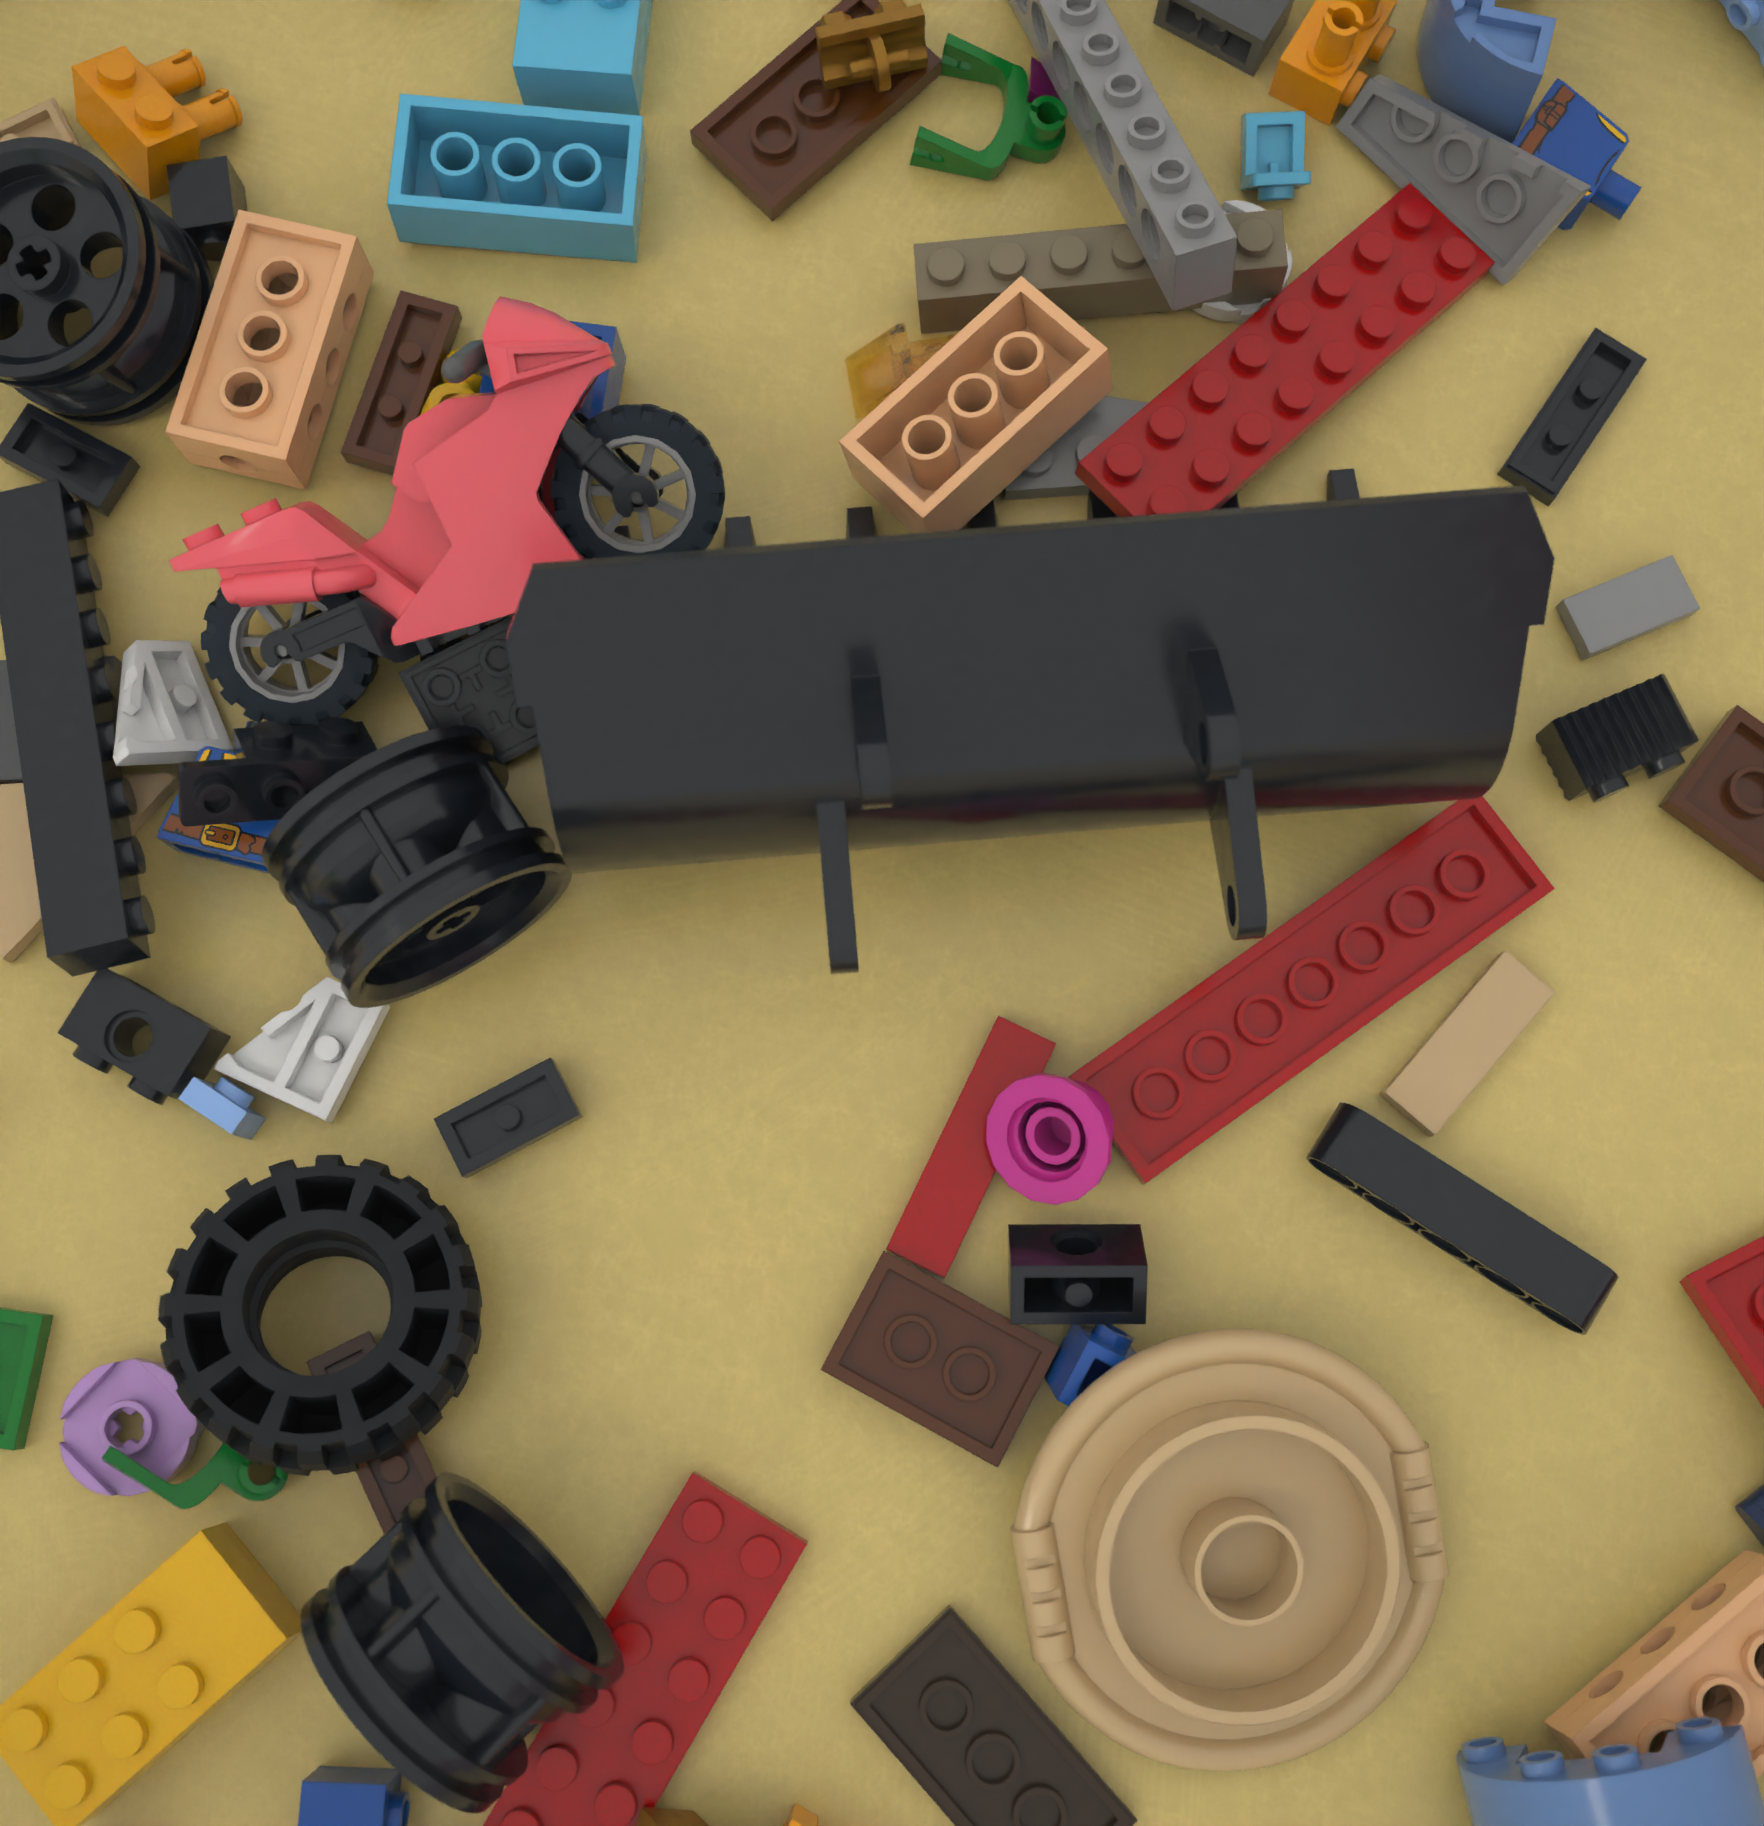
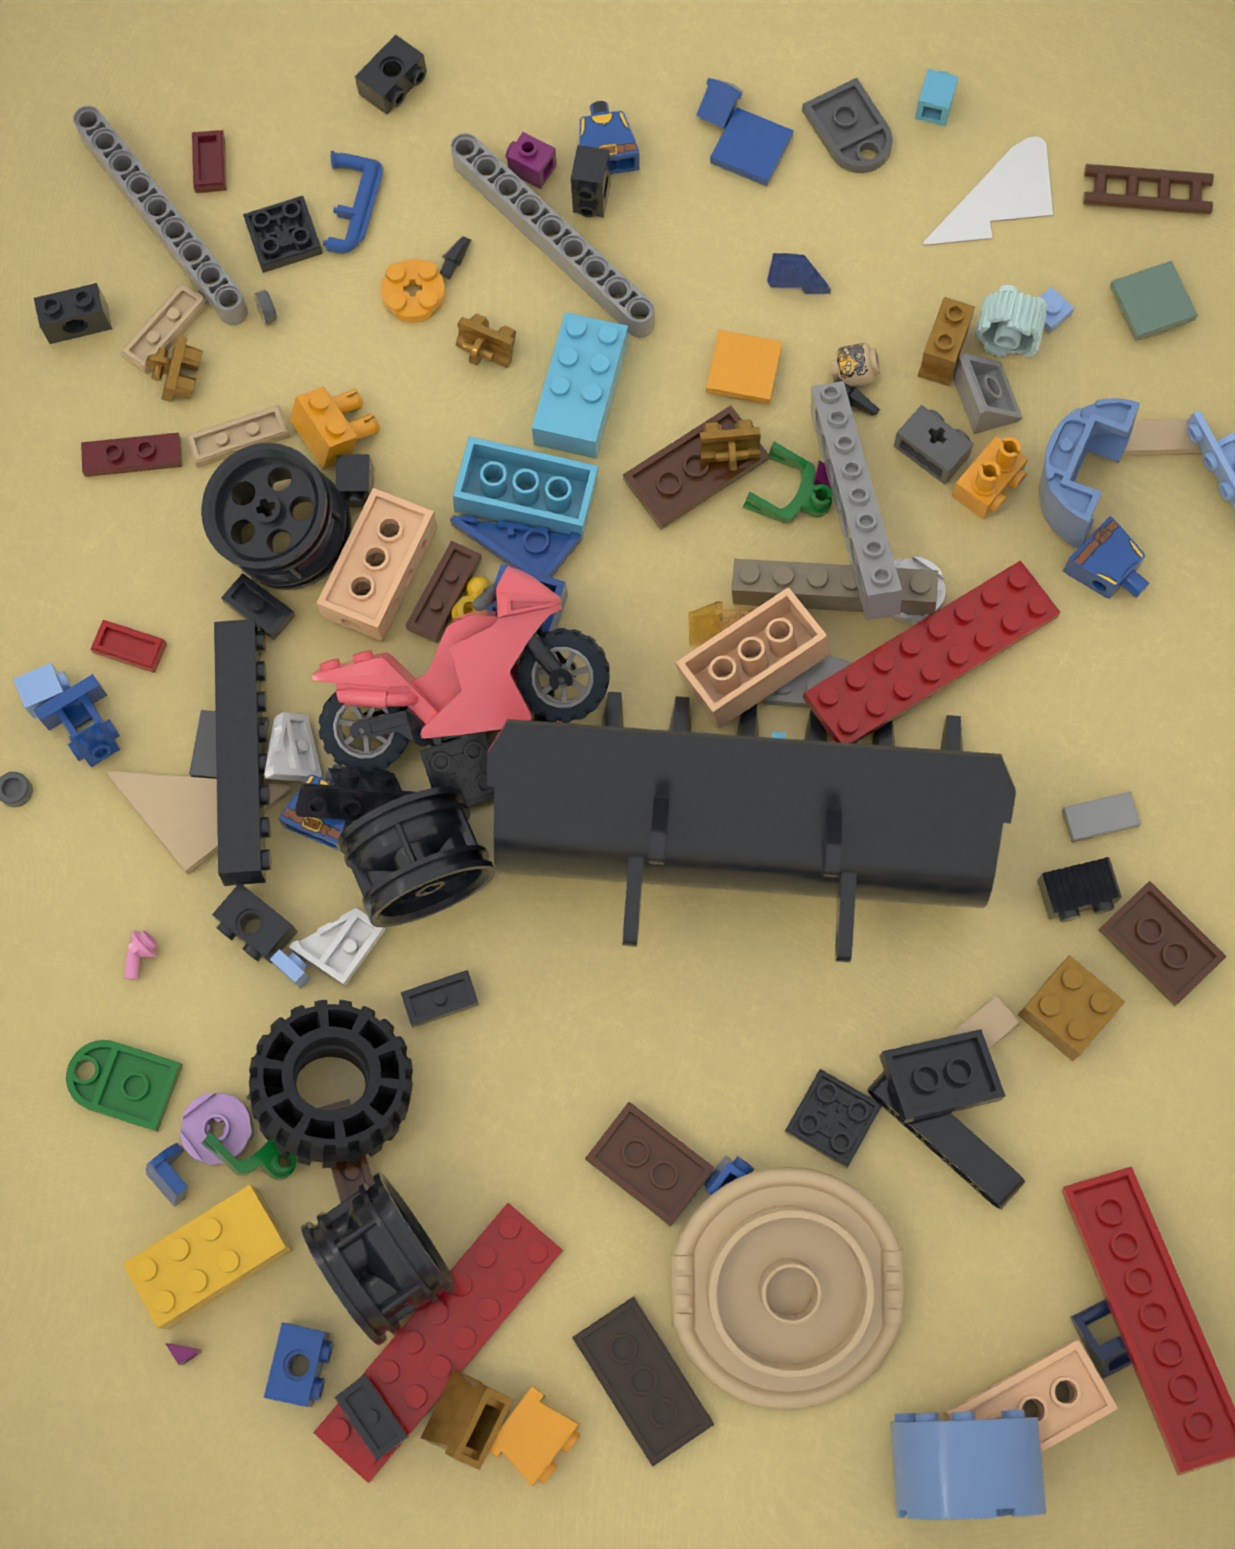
camera: 15 degrees right, 5 degrees down
(31, 1524) = (165, 1177): none -> blue tile
(552, 277) = (519, 545): none -> blue wing
(961, 1162) = (685, 1054): red tile -> none
(1050, 1137) = (727, 1054): dark pink piece -> none
(1077, 1274) = (729, 1129): black brick -> none
(1254, 1218) = (833, 1118): none -> black tile
(1273, 154) = (945, 533): medium azure bracket -> none
(1312, 984) = (885, 996): red plate -> none
(1443, 1114) = (941, 1076): none -> black plate
(1476, 179) = (1056, 567): light grey wing -> none
(1572, 416) = (1089, 705): black tile -> none
(1644, 952) = (1071, 1008): none -> pearl gold brick

